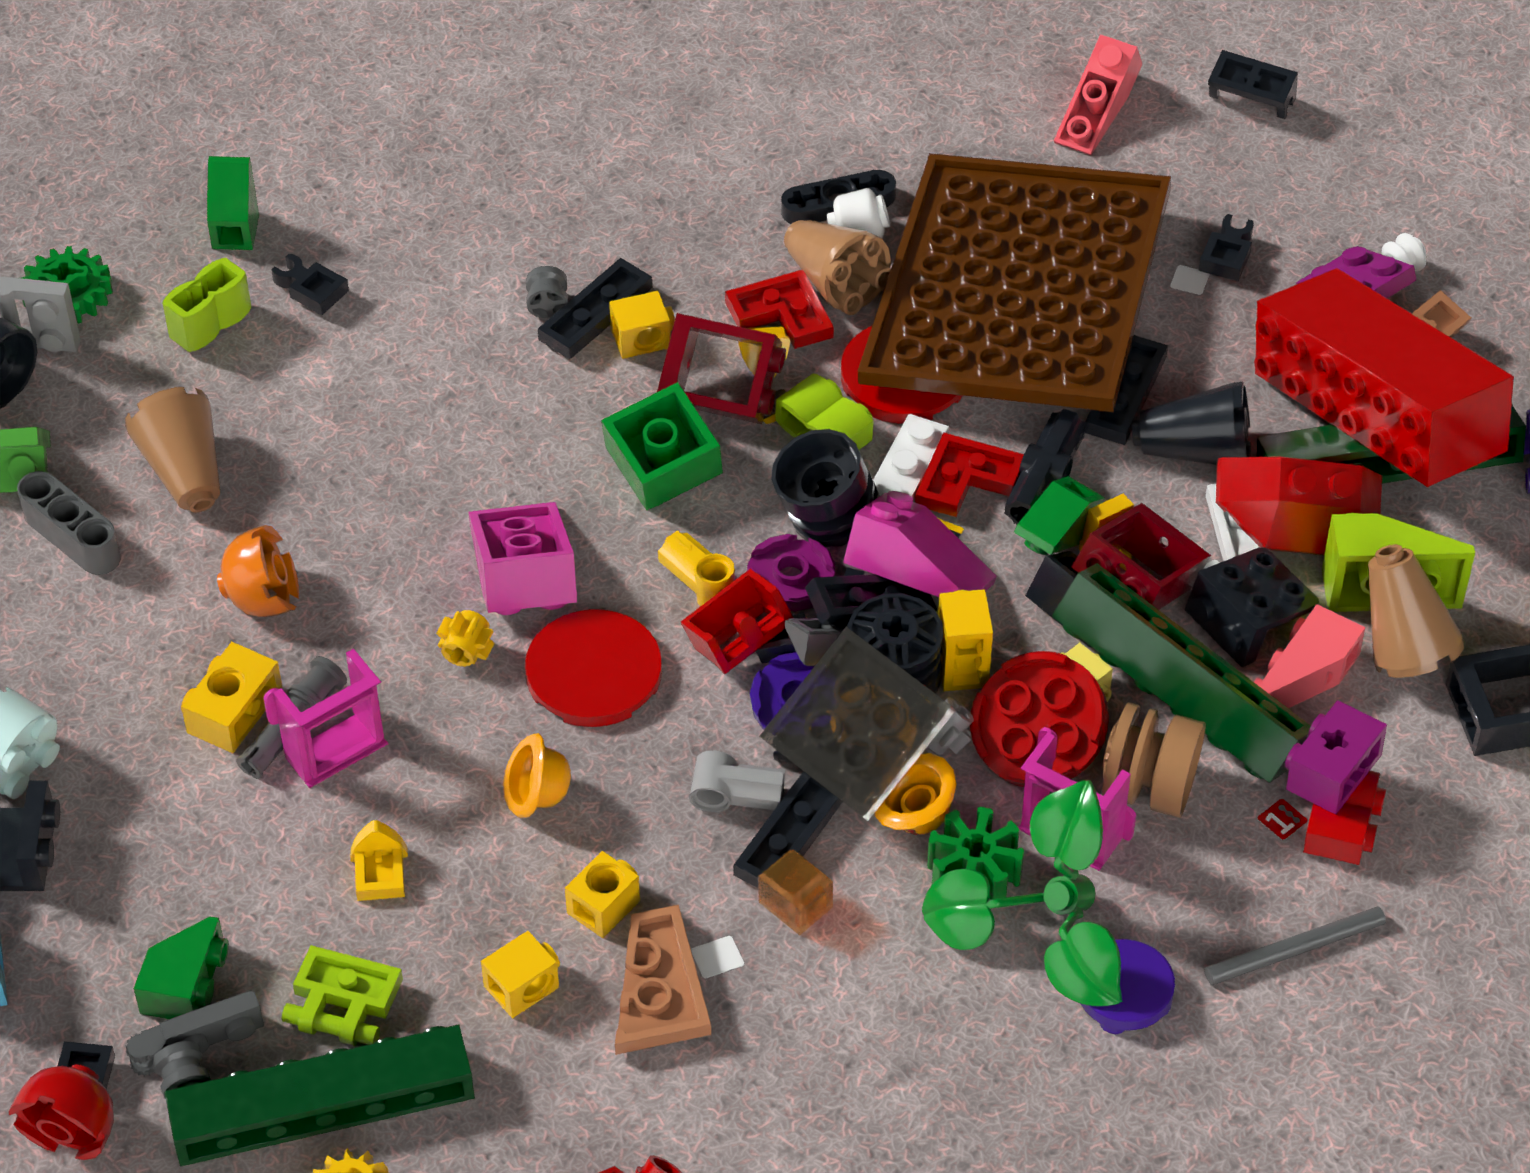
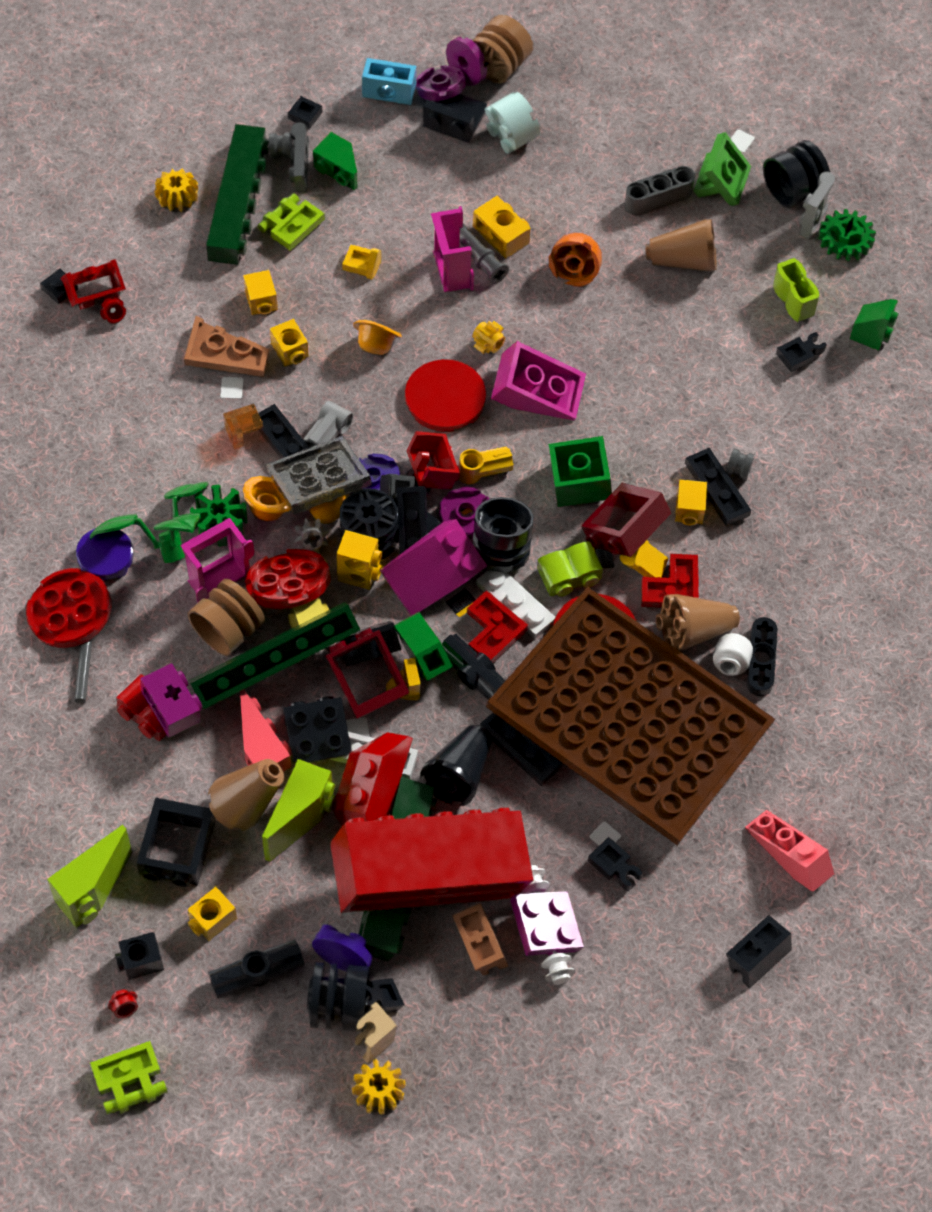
camera: 110 degrees right, 10 degrees up
(65, 1109) = (276, 89): red cylinder -> none
(1247, 989) = (69, 608): none -> red tile

